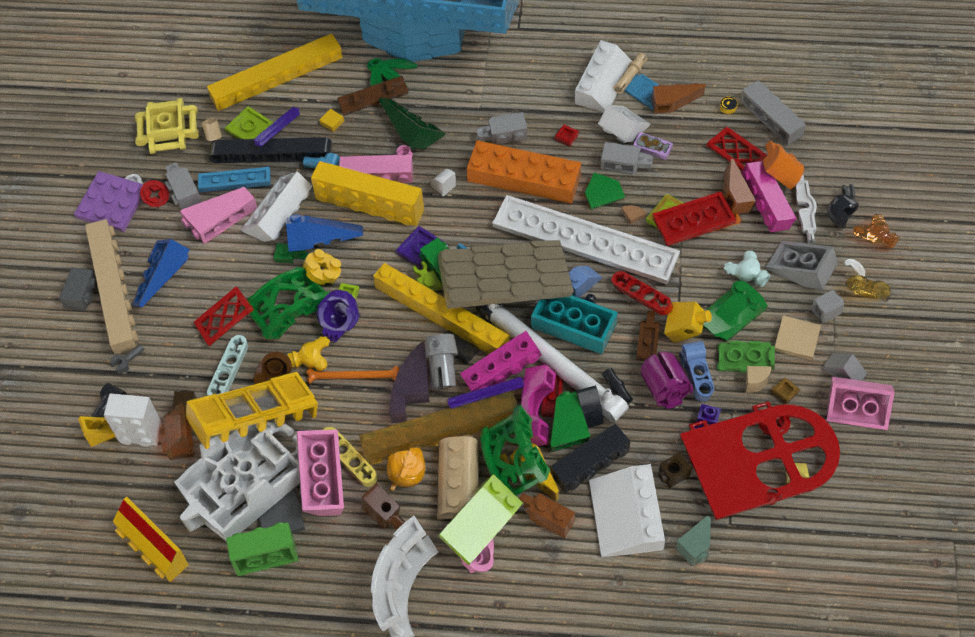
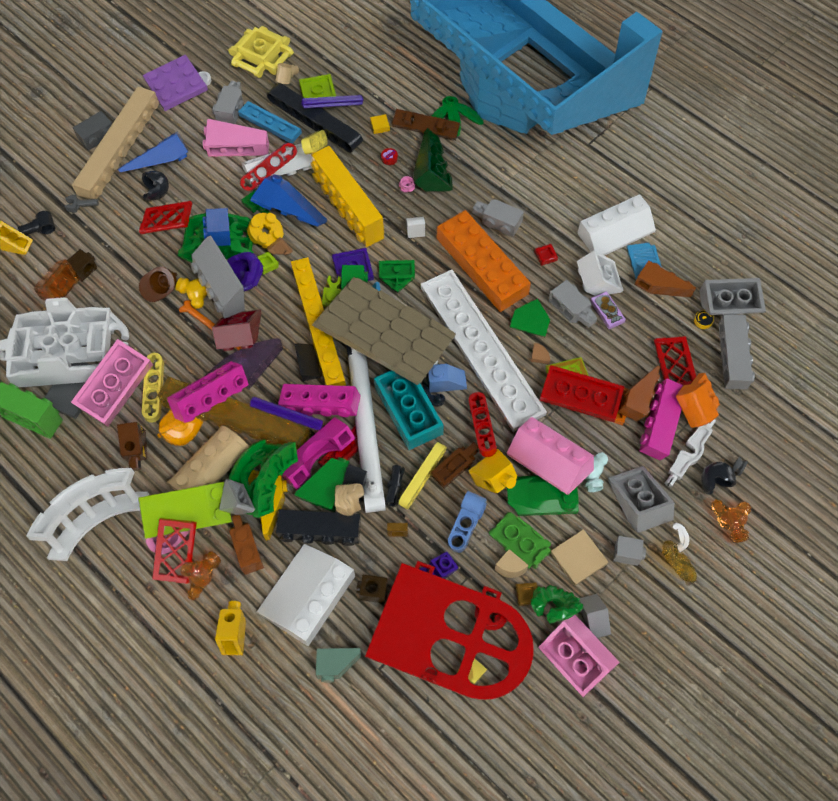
camera: 35 degrees right, 5 degrees up
(133, 419) = (29, 247): white brick -> none
(154, 186) = (211, 91): red gear -> none
(187, 295) = (156, 183): none -> black helmet
(230, 369) = (137, 262): light aqua beam -> none
(250, 406) = (109, 297): yellow window -> none
(274, 72) = (372, 60): yellow brick -> none
(280, 214) = (267, 165): none -> red beam
(288, 288) = (217, 226): none -> blue piece
(300, 167) = (314, 142): none -> light yellow beam
(329, 327) = (218, 278): none -> light grey slope
(330, 158) = (345, 154): dark azure pin -> none
(346, 273) = (279, 247): none -> medium nougat tile
(366, 141) = (389, 156): none -> red tile
(382, 358) = (237, 330): none -> slope
(391, 167) = (377, 184): bright pink brick -> none
(412, 417) = (208, 391): none -> dark pink brick
(440, 351) = (282, 358): light grey piece -> none
(462, 229) = (397, 273): none -> green slope
(483, 554) = (174, 577): none -> red window
(516, 481) = (235, 499): none -> light grey slope
(533, 559) = (200, 573): none -> clear orange animal
(596, 418) = (348, 498): none -> tan hair
(599, 579) = (231, 630): none -> yellow torso
(632, 363) = (422, 475): none -> light yellow beam
(633, 68) = (649, 236): tan pin -> none
(651, 415) = (397, 529): none -> pearl gold tile
(666, 379) = (438, 523): magenta cylinder -> none
(715, 277) = (551, 455): none -> bright pink slope
(736, 73) = (732, 296): none -> light grey slope
(822, 375) = (566, 603): none -> green piece

